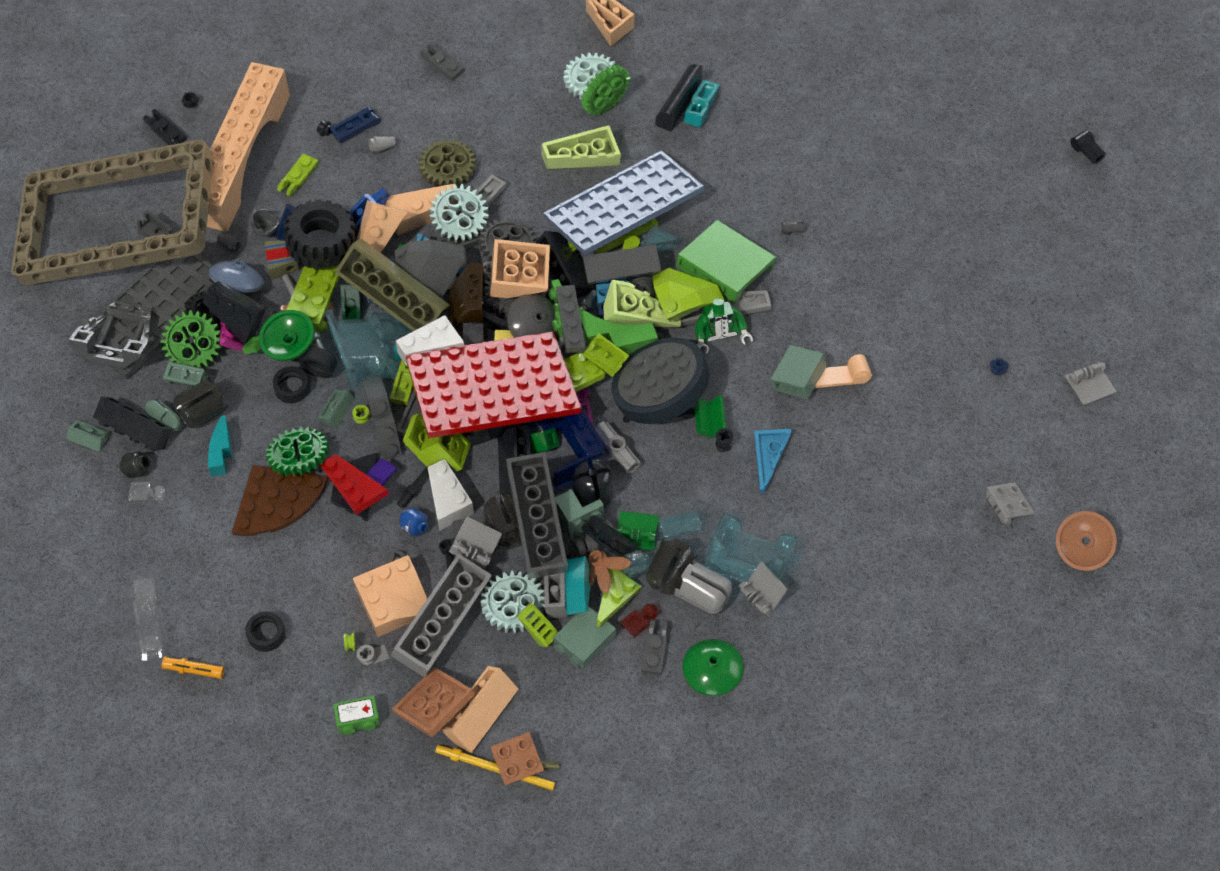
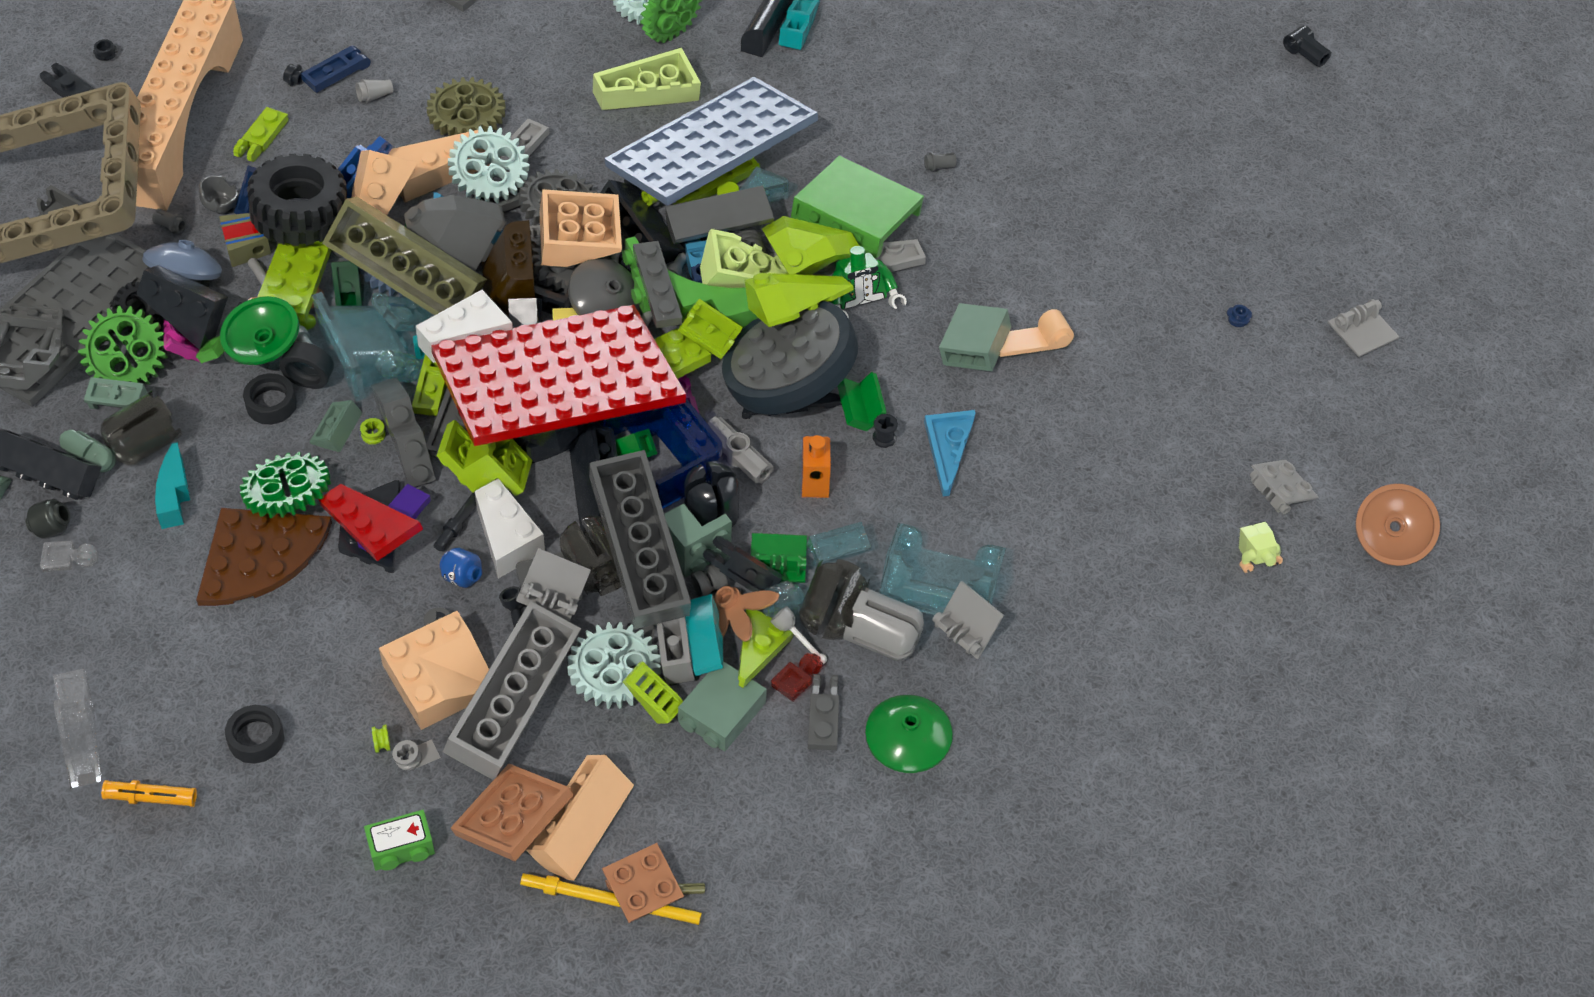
camera: 10 degrees left, 5 degrees down
(634, 580) = (785, 620): none -> light grey hinge
(659, 335) = (782, 296): none -> lime wedge
(670, 460) = (816, 458): none -> orange torso
(982, 549) = (1259, 546): none -> yellowish green piece

